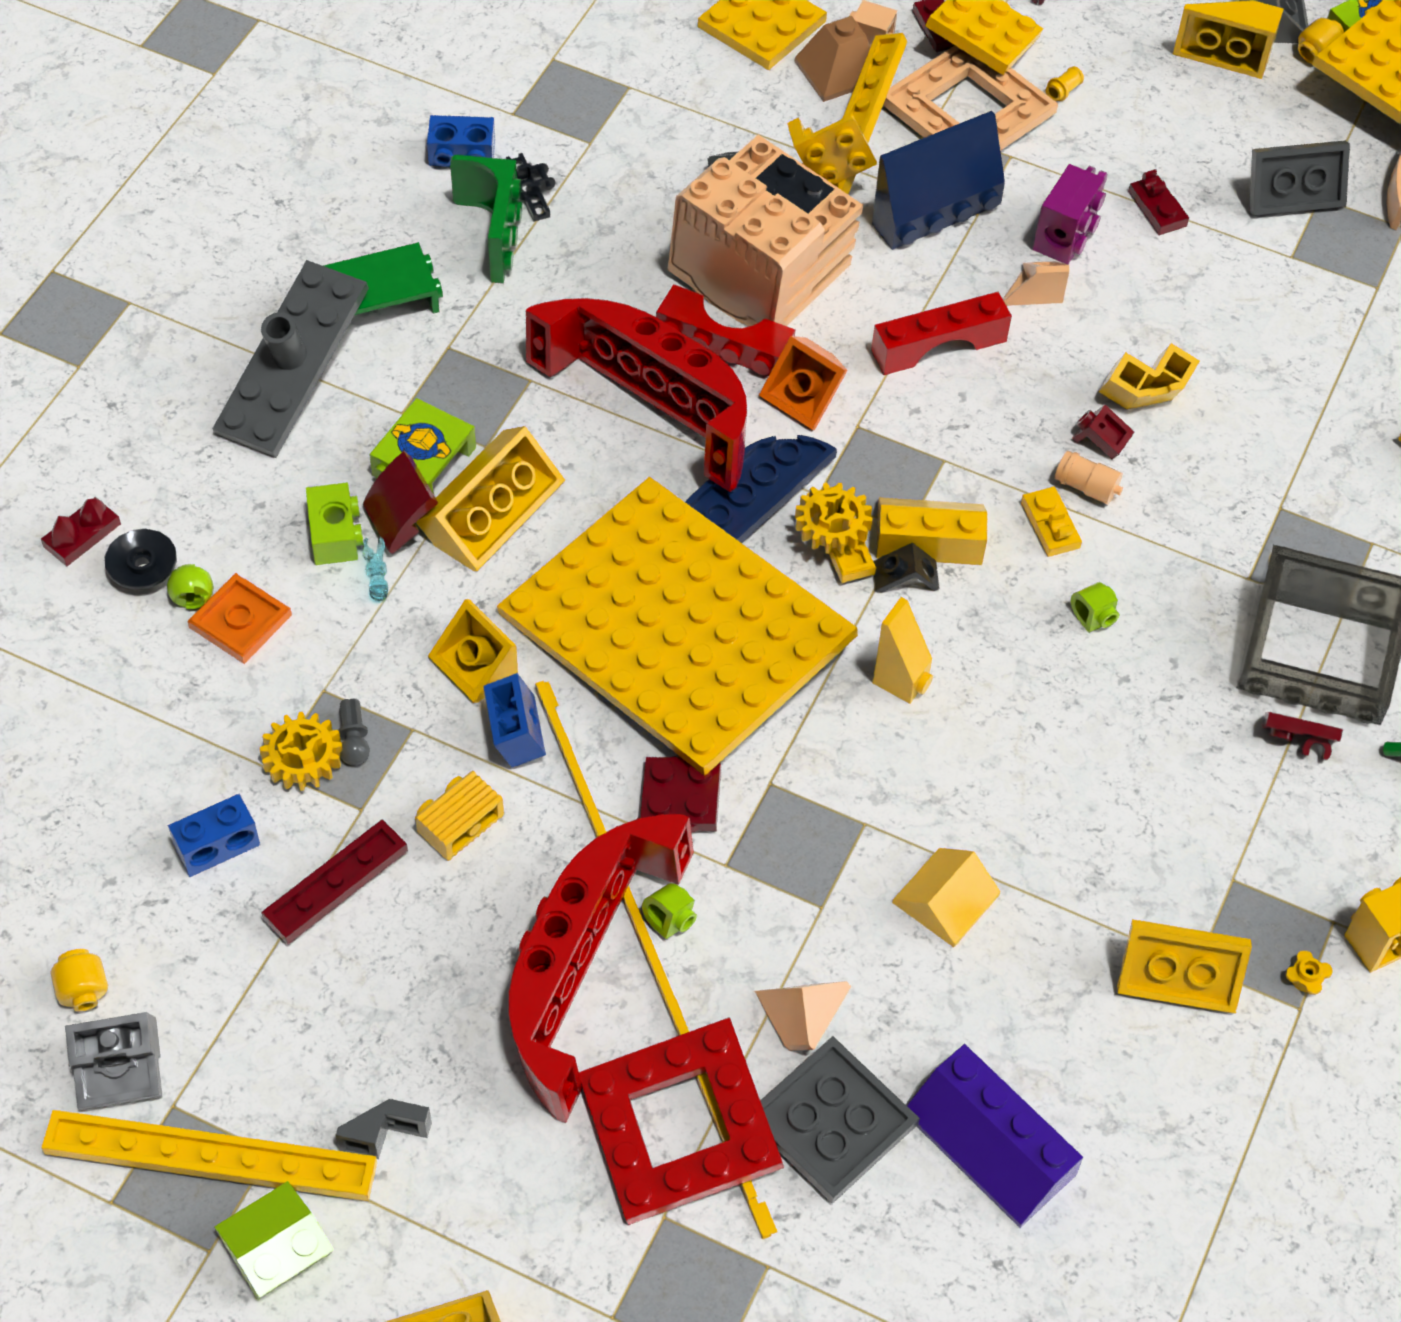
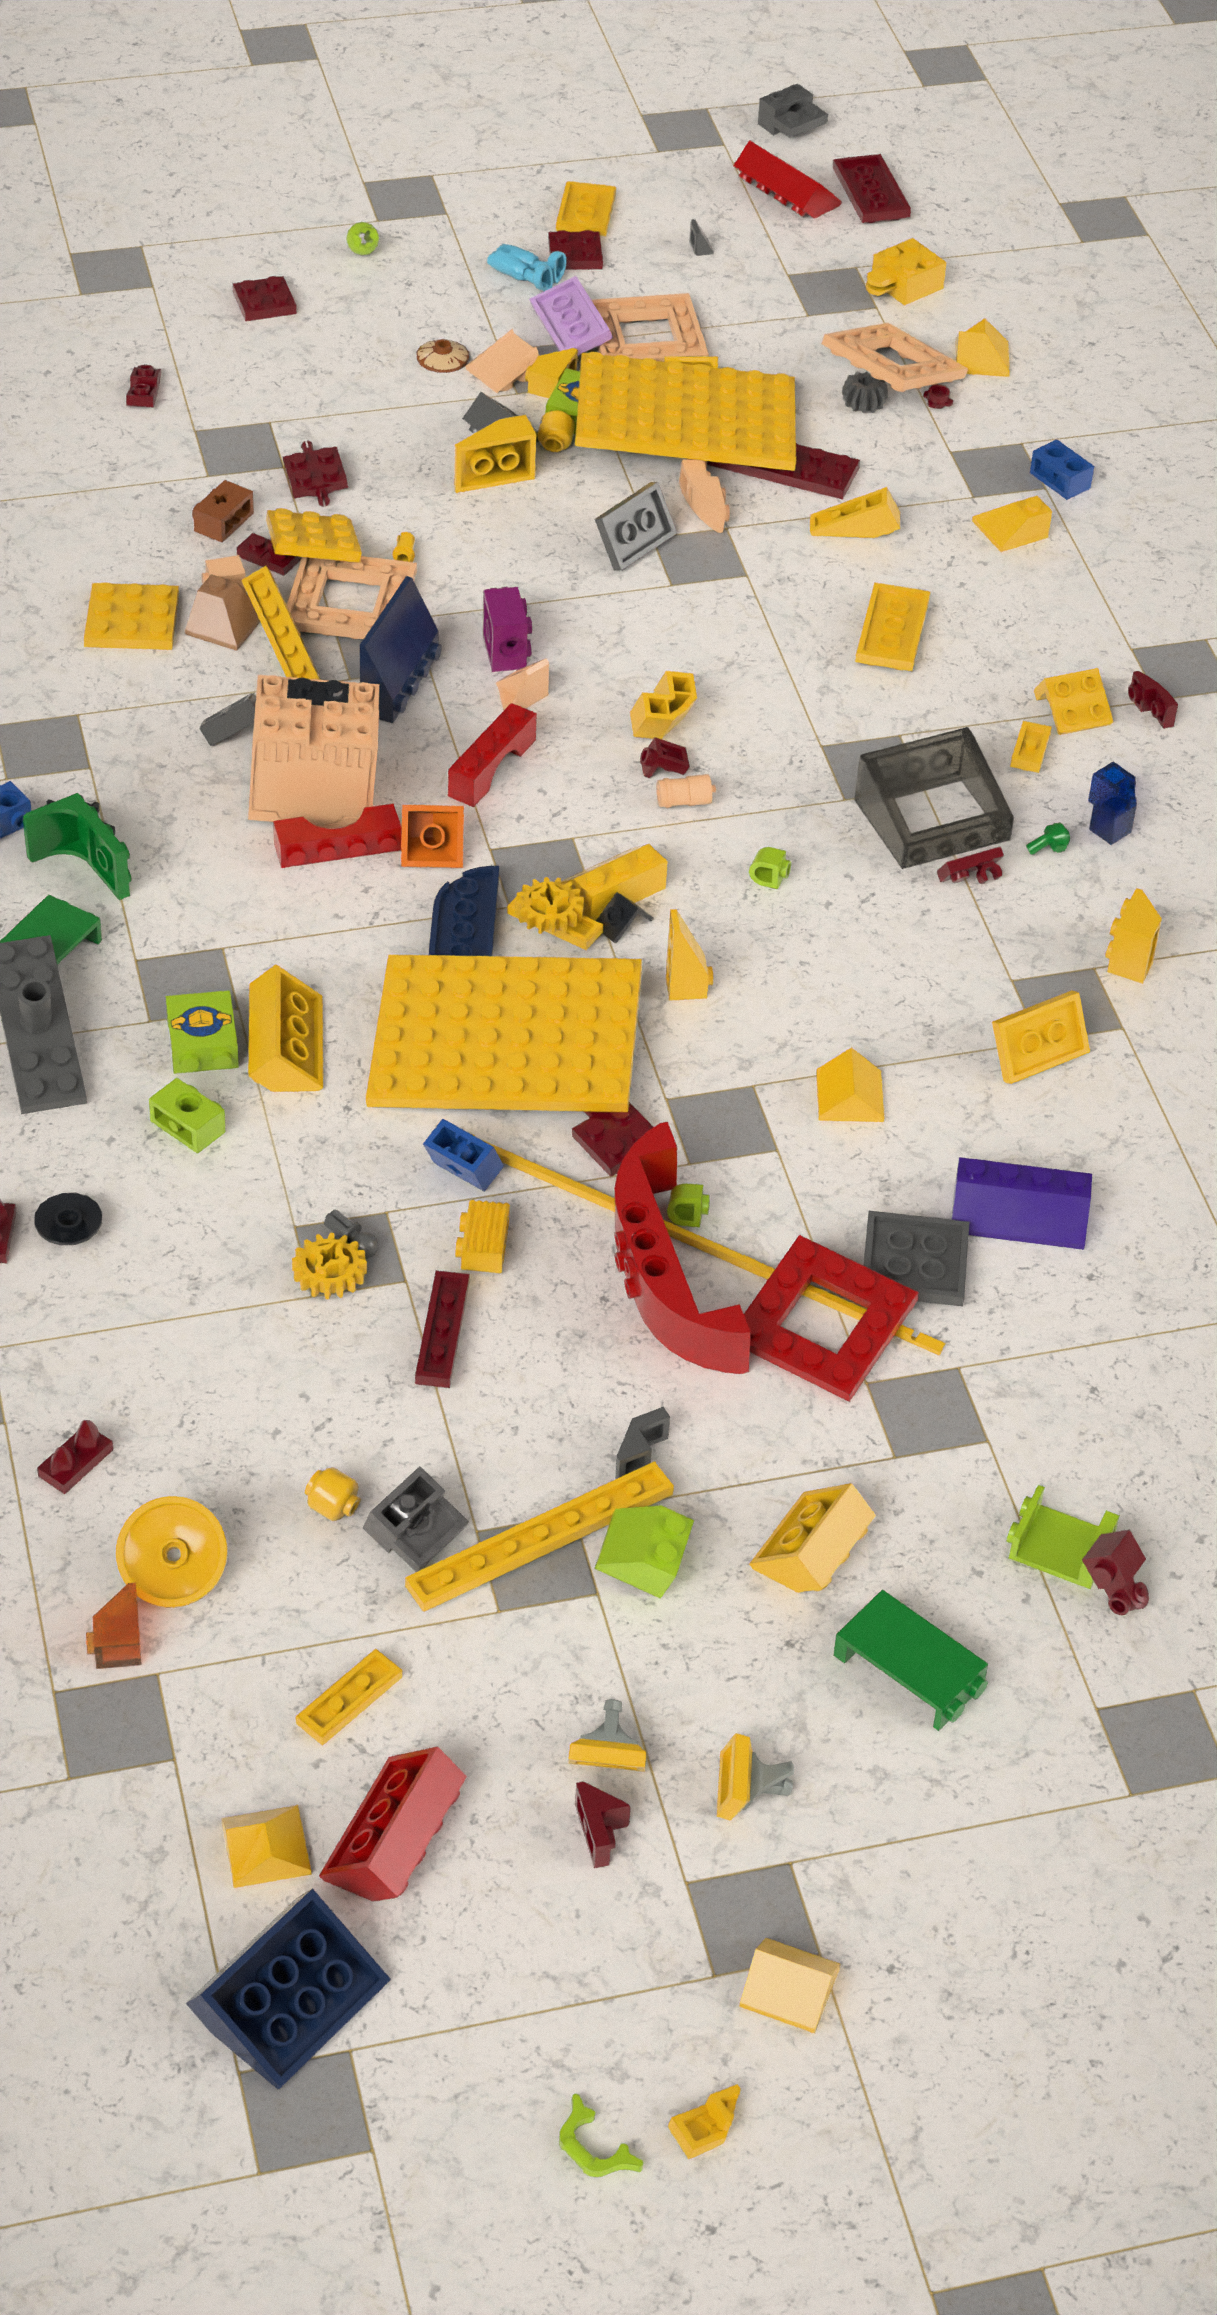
camera: 40 degrees left, 10 degrees down
(190, 586) = (127, 1214): lime piece -> none
(214, 835) = (328, 1351): blue brick -> none
(239, 618) = (182, 1216): orange tile -> none
(376, 570) = (250, 1127): clear light blue piece -> none
(398, 501) = (229, 1068): dark red slope -> none
(474, 651) = (385, 1131): yellow slope -> none
(652, 363) = (329, 878): red slope -> none
(803, 1011) = (834, 1212): light nougat slope -> none
(833, 151) = (310, 660): yellow bracket -> none
(1051, 521) = (685, 834): yellow plate -> none
(1158, 203) = (550, 596): dark red plate -> none
(1303, 981) = (1110, 1003): yellow plate -> none

